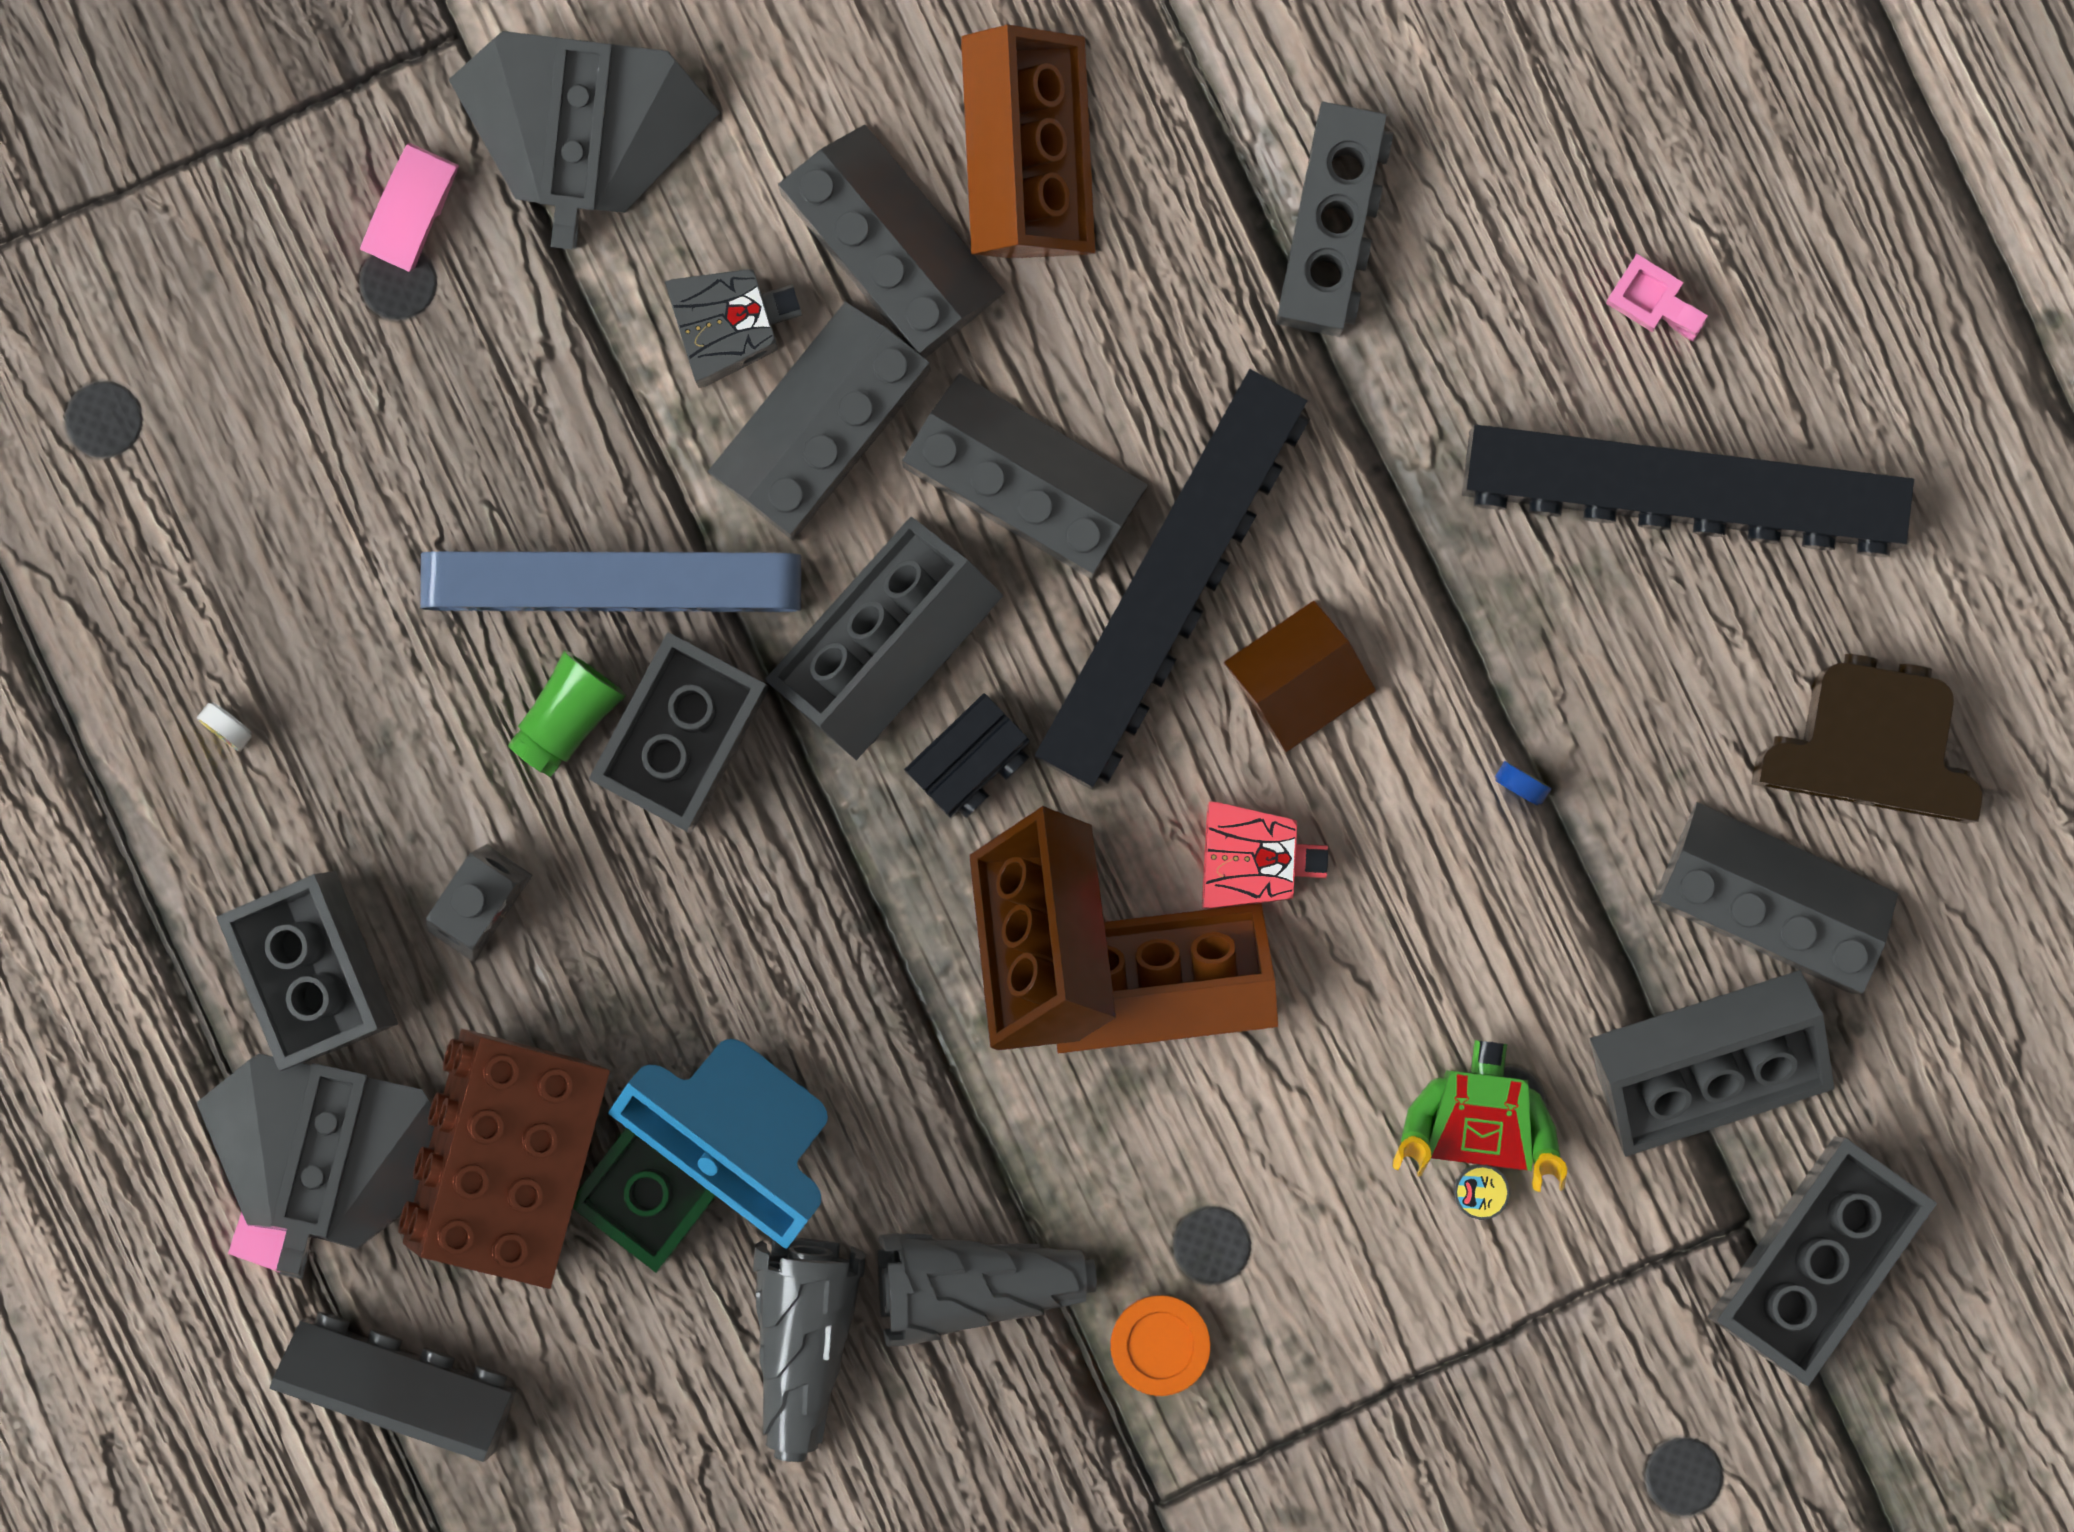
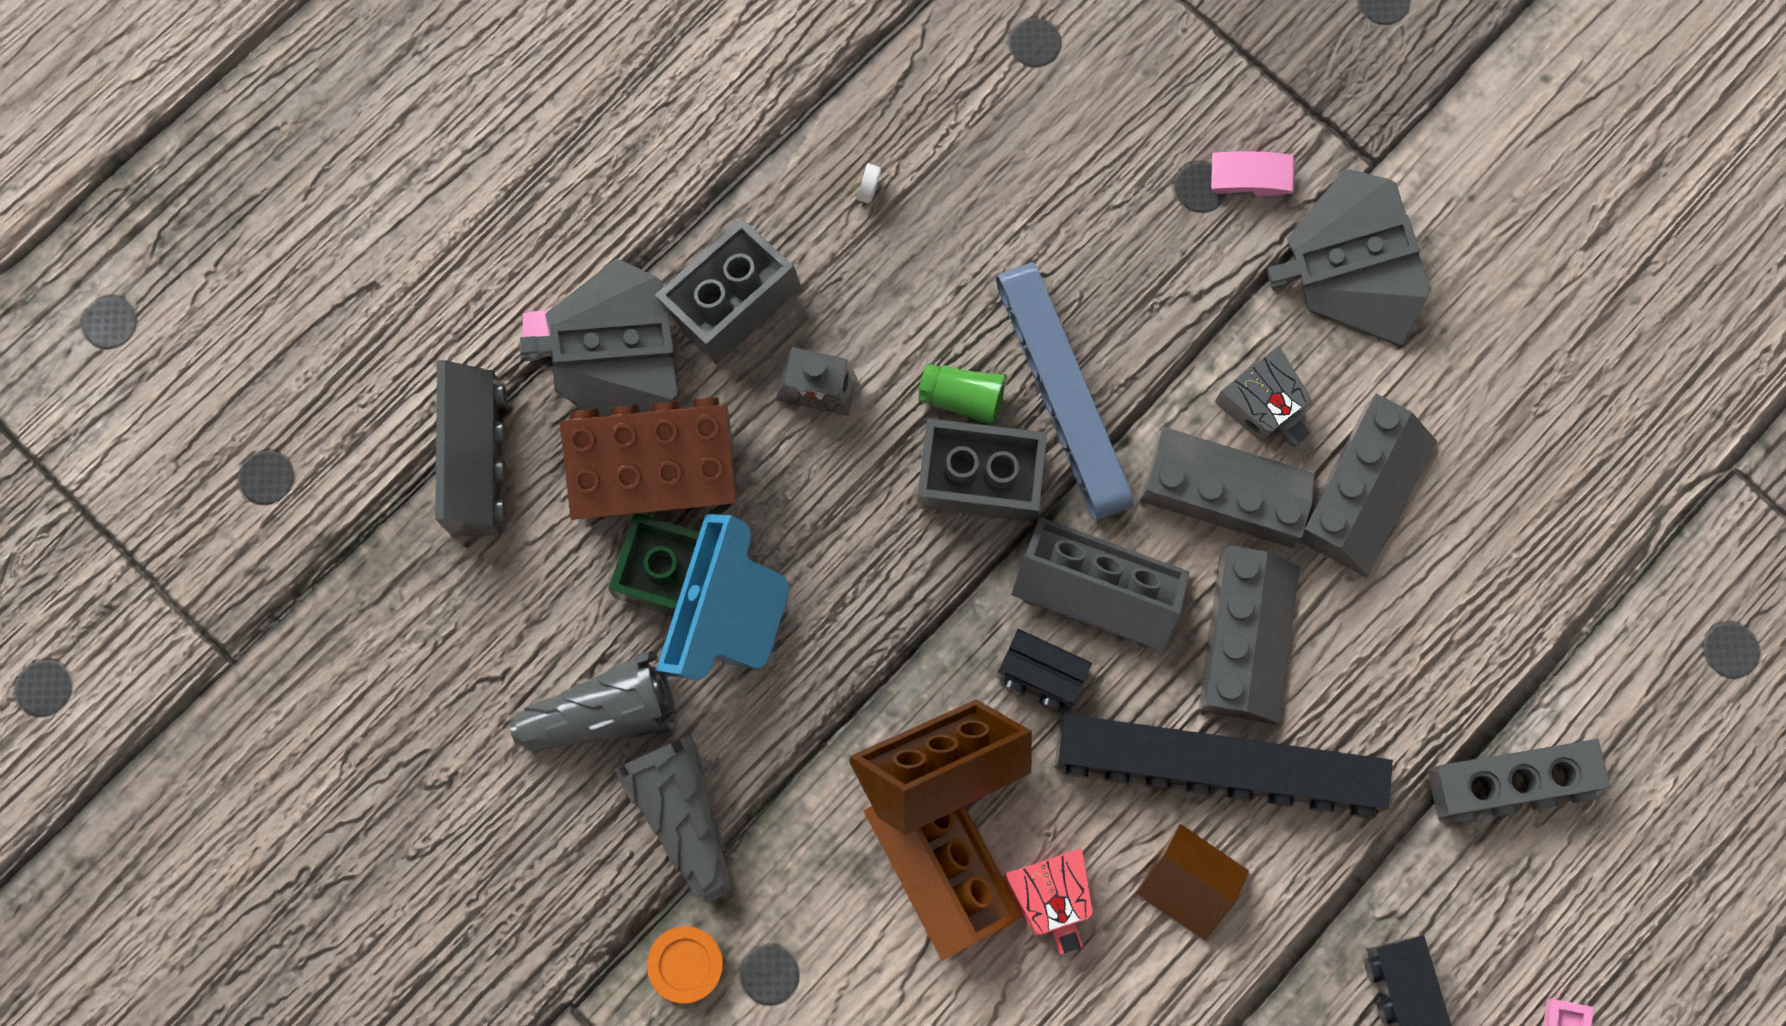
camera: 70 degrees right, 10 degrees down
(1027, 143) = (1475, 551): dark orange slope -> none

